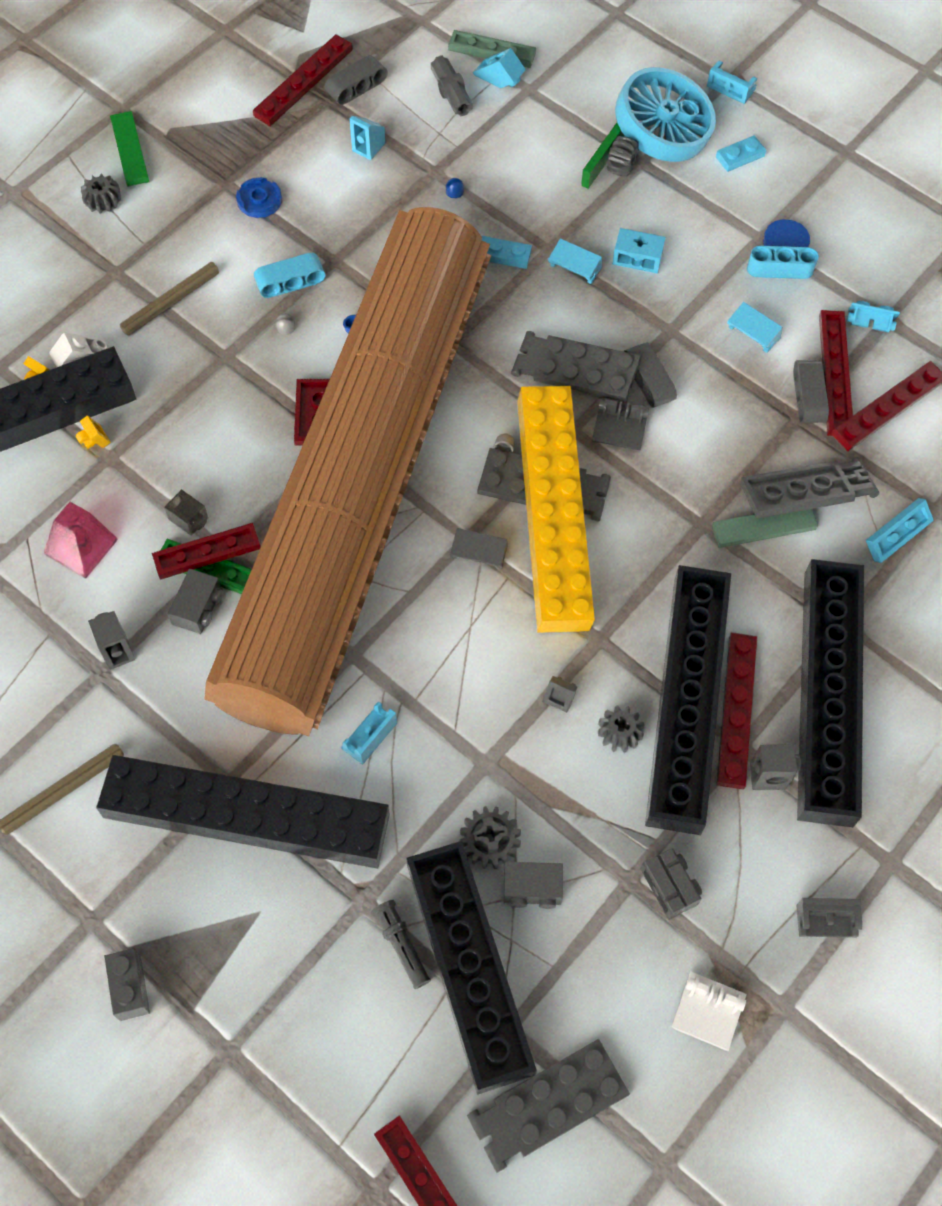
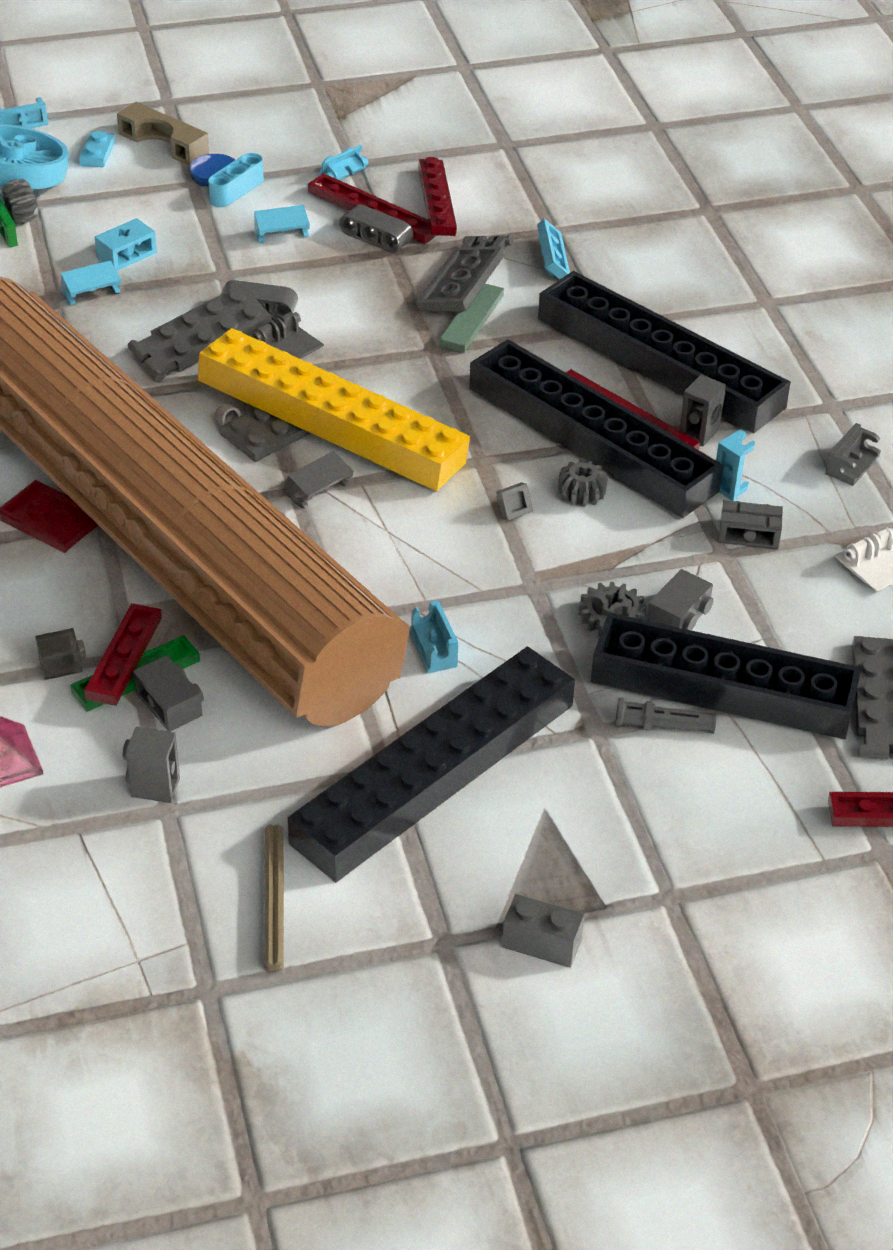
camera: 55 degrees left, 20 degrees down
(722, 825) = (732, 456): none -> medium azure hinge
(794, 158) = (144, 123): none -> dark tan arch

